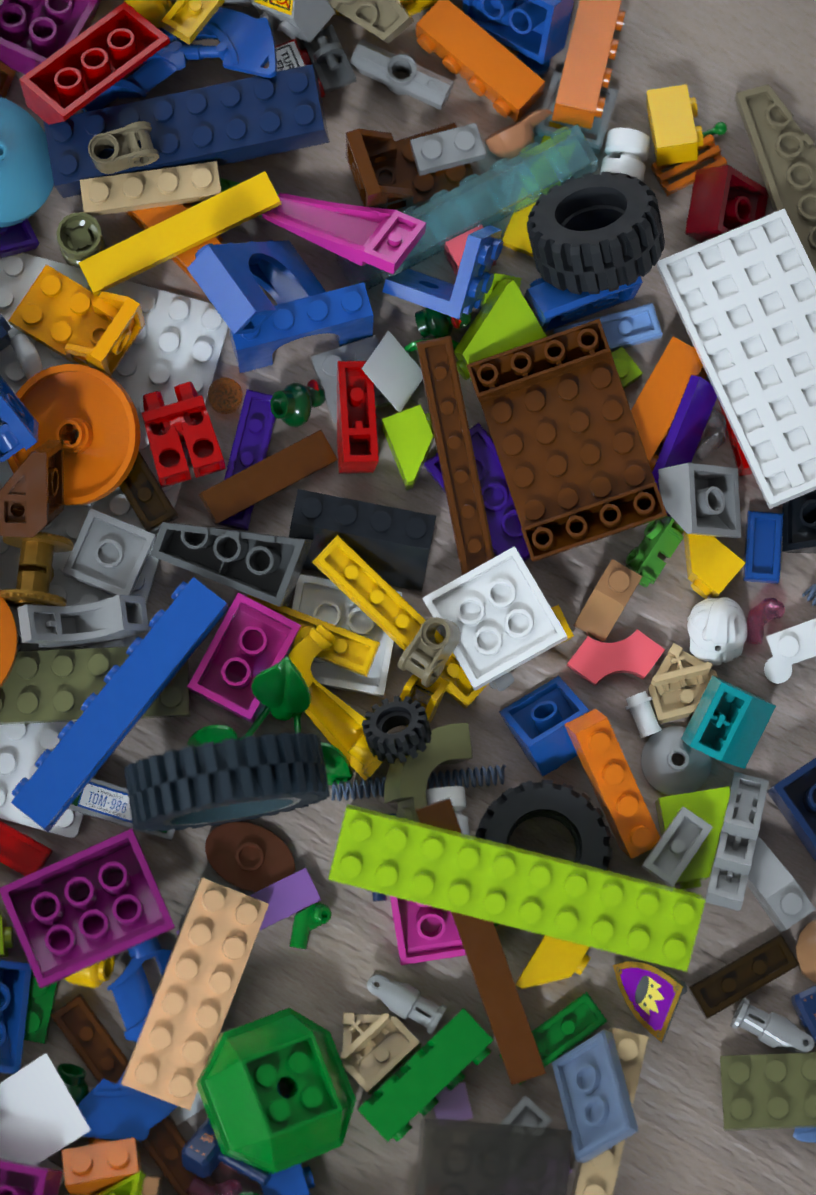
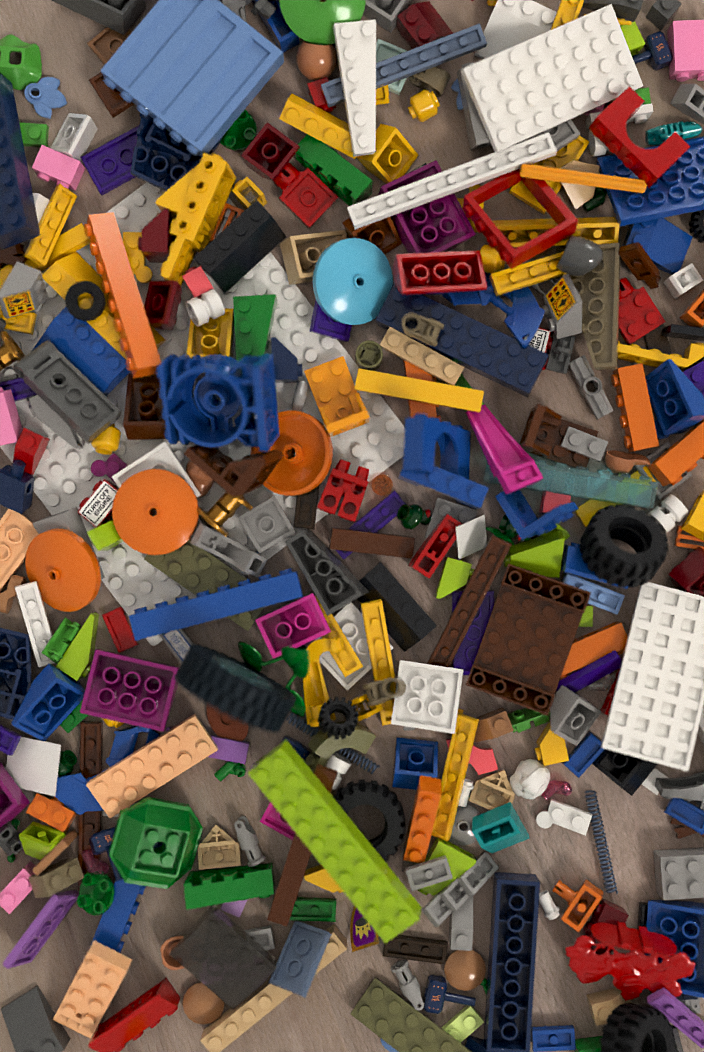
camera: 45 degrees right, 10 degrees up
(613, 697) = (454, 775): none -> yellow tile

